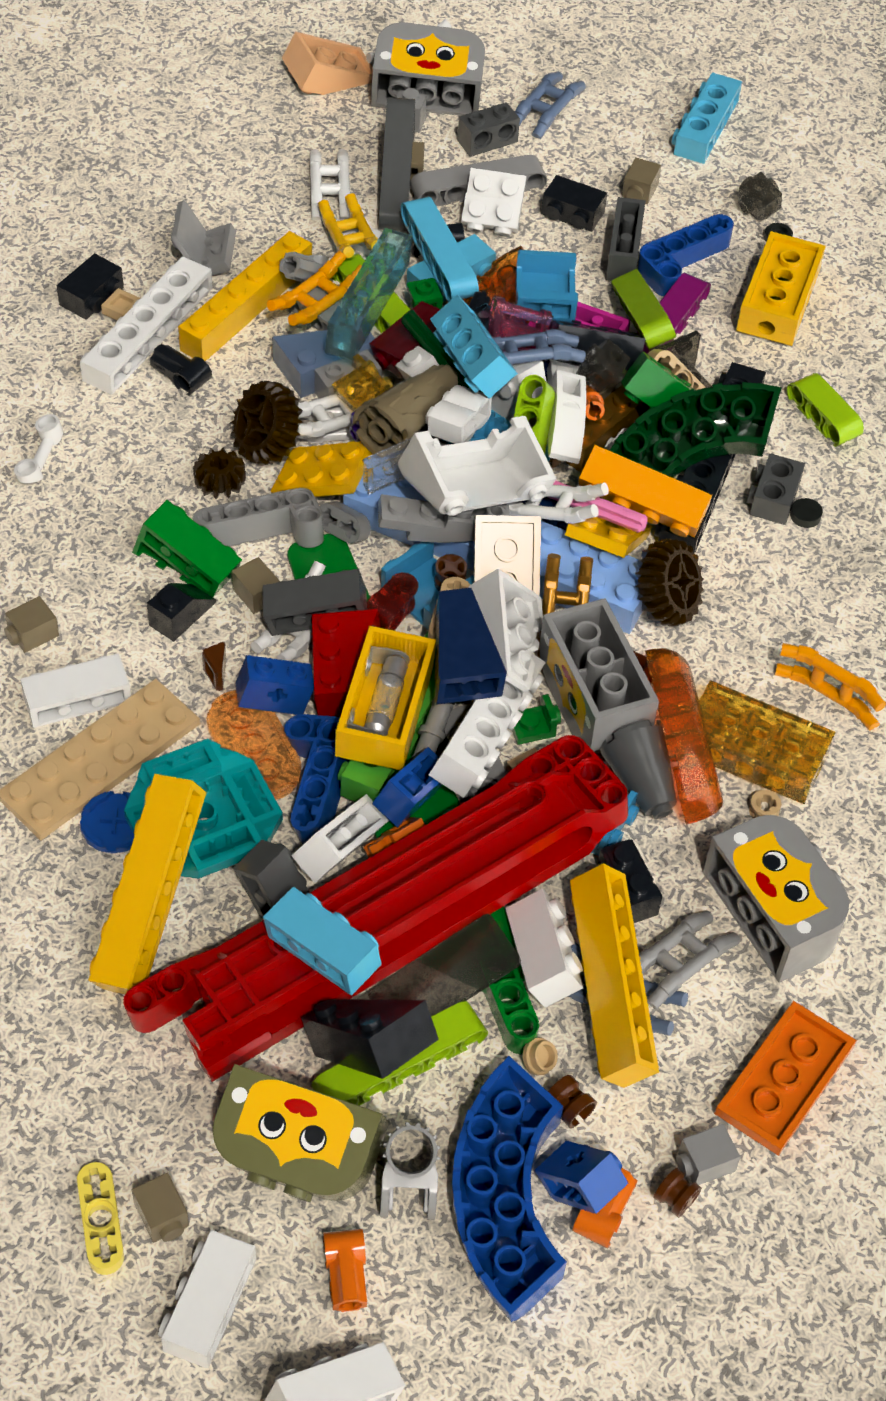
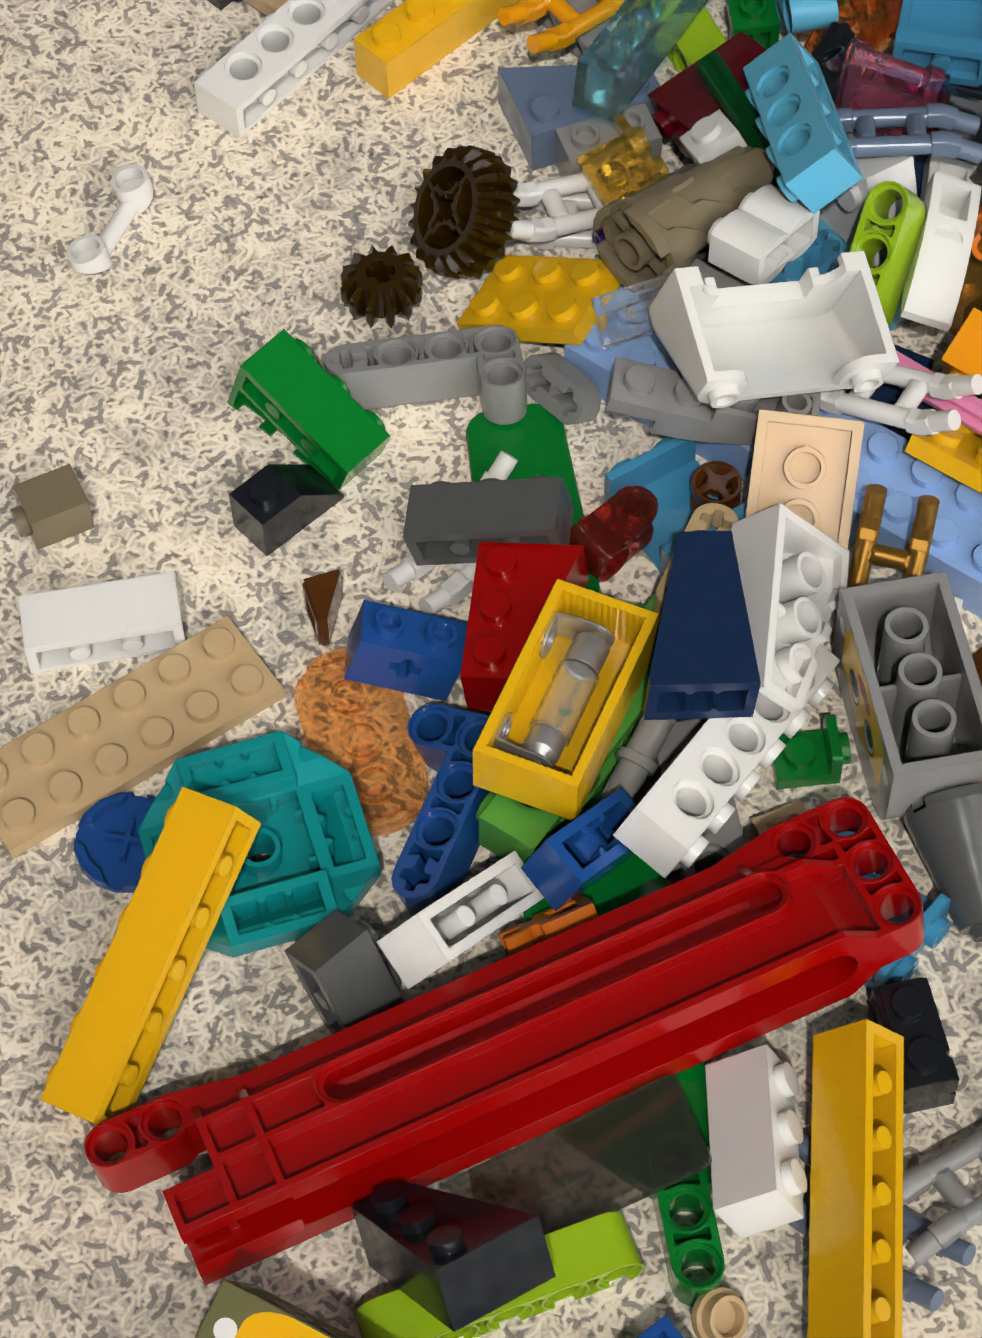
camera: 15 degrees right, 5 degrees up
(184, 372) = (355, 111): black piece -> none
(249, 582) = (399, 467): dark tan brick -> none
(323, 940) = (395, 1095): medium azure brick -> none

